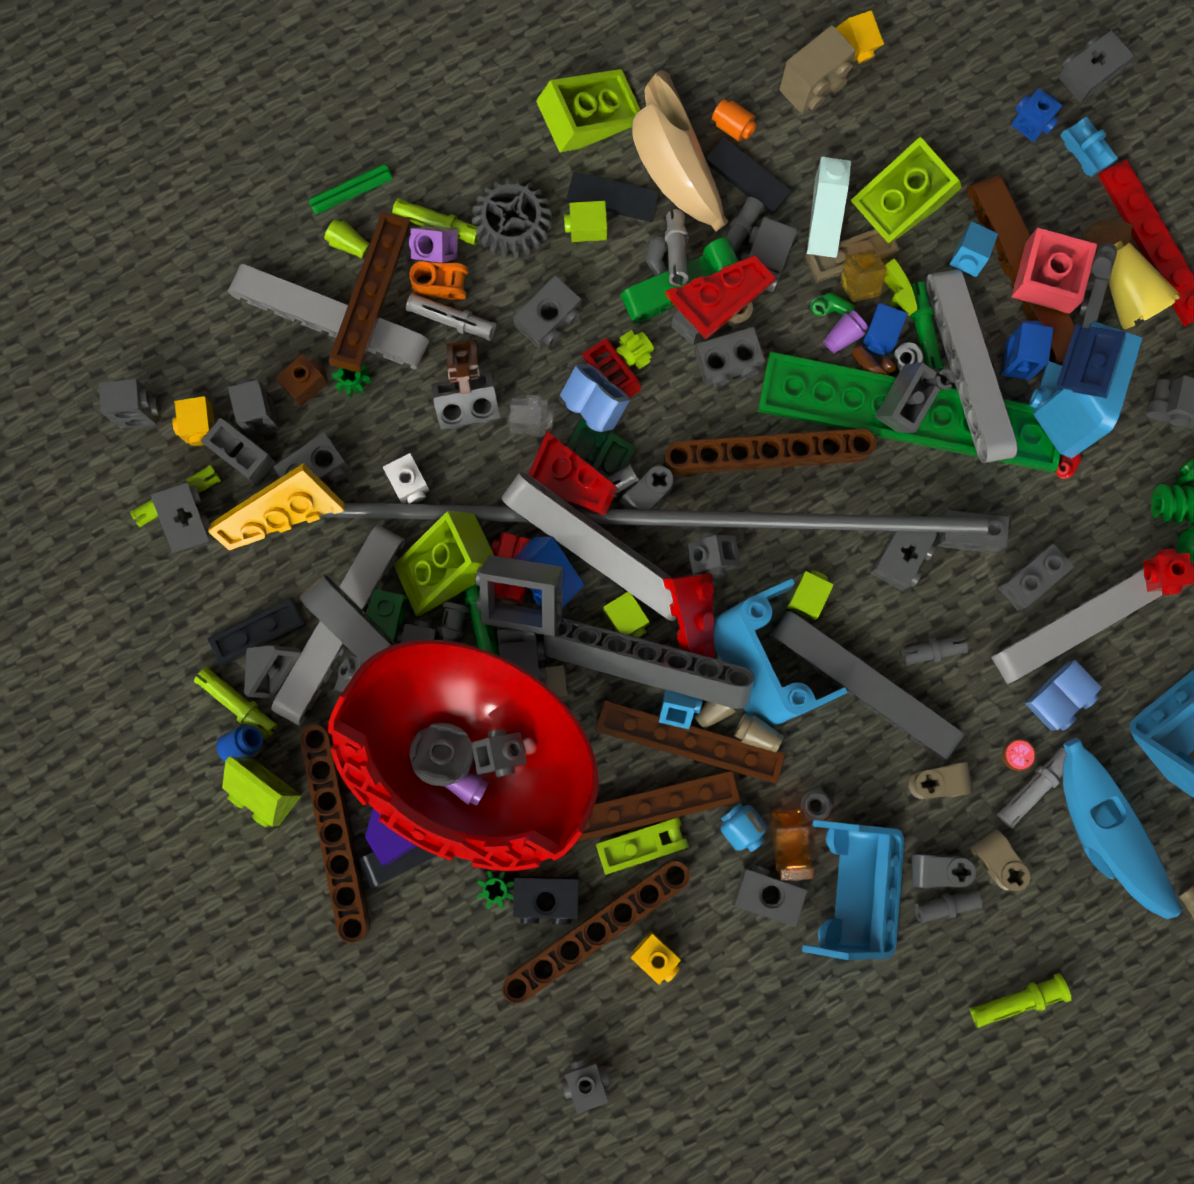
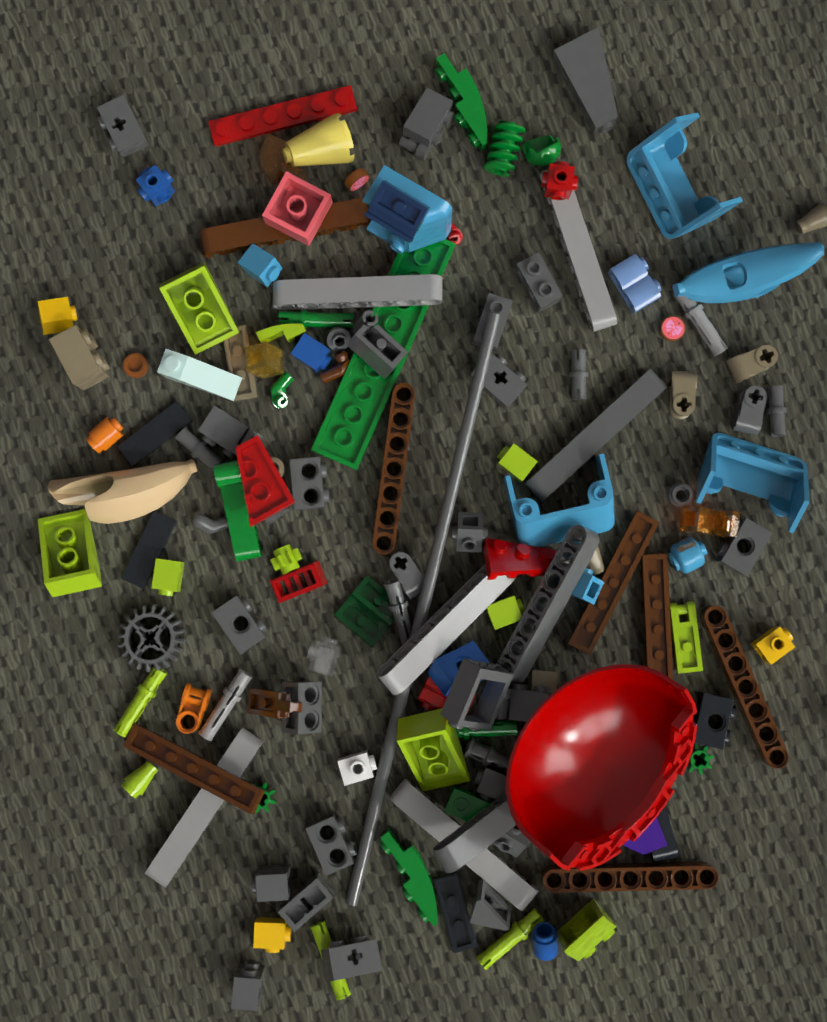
camera: 80 degrees left, 5 degrees up
(276, 508) = (361, 879): yellow wing -> none
(283, 581) = (418, 884): none -> green slope
(302, 379) = (254, 838): reddish brown brick -> none
(350, 188) = (95, 768): green axle -> none
(441, 754) = (590, 782): dark grey tile -> none
(443, 240) = (162, 707): medium lavender brick -> none
(469, 788) = (616, 768): medium lavender cone -> none
(499, 753) = (599, 736): dark grey brick -> none
(571, 477) = (384, 635): red wing -> none
(594, 398) = (321, 601): medium blue brick -> none
(676, 239) = (199, 505): light grey pin -> none
(757, 733) = (618, 528): dark tan cone -> none
(821, 139) = (135, 365): none -> dark orange tile
(846, 331) = (306, 384): medium lavender cone -> none
(1027, 350) = (355, 244): blue brick -> none
(1088, 146) = (192, 150): dark azure hips -> none
(1098, 283) = (315, 175): dark grey hinge -> none

